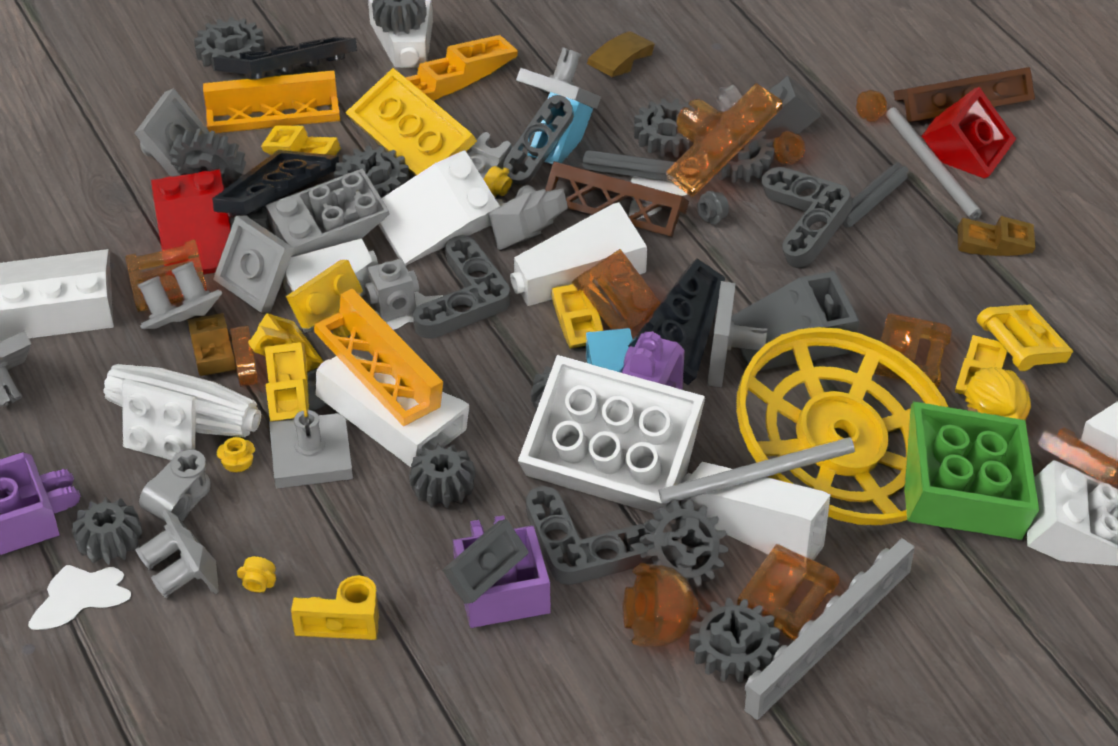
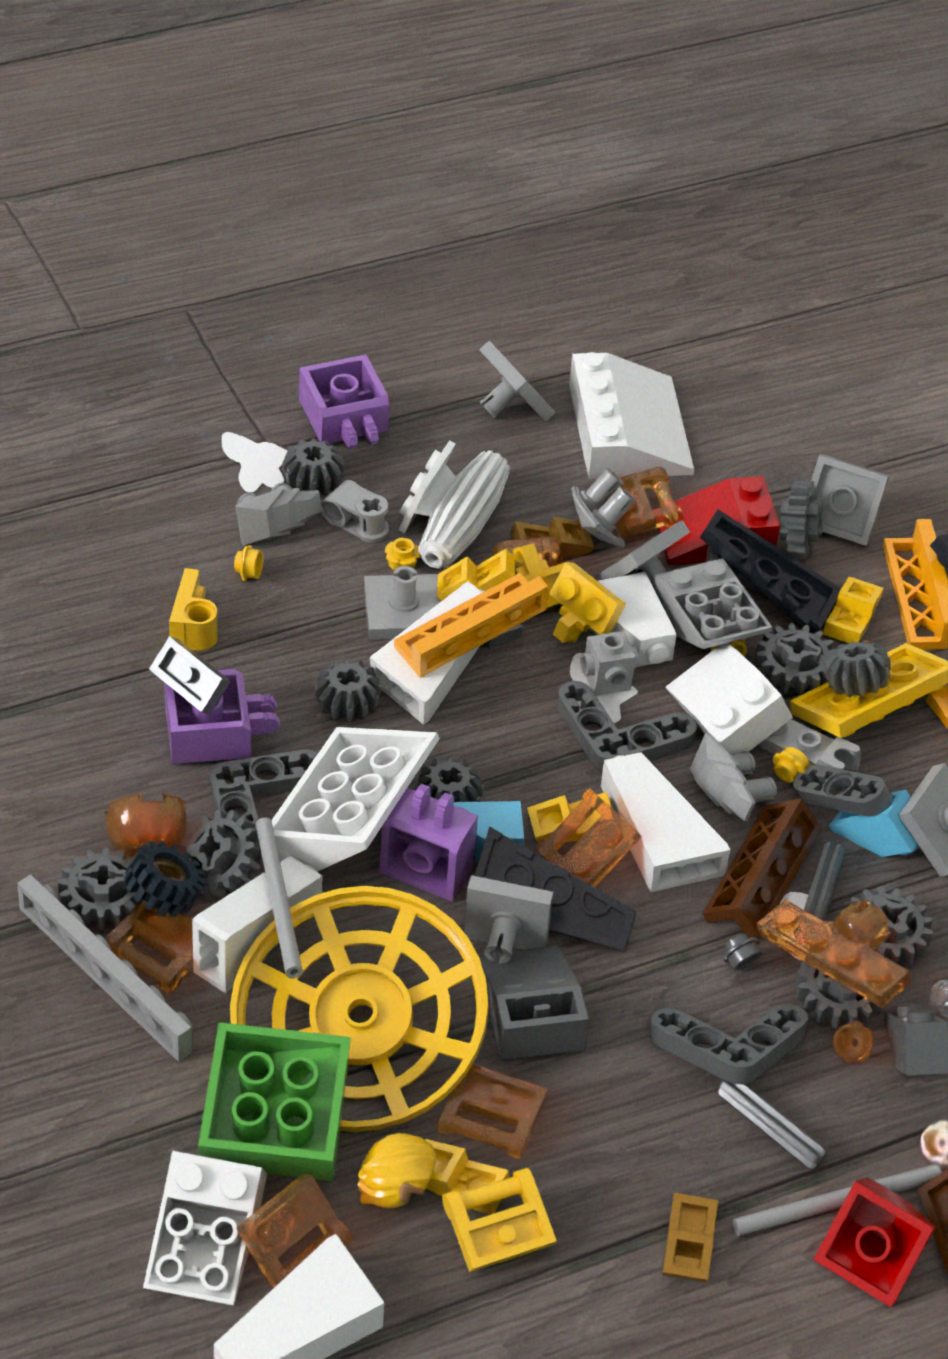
camera: 90 degrees right, 0 degrees up
(403, 122) = (857, 668): none -> dark grey gear
(733, 574) = (164, 878): none -> black bush

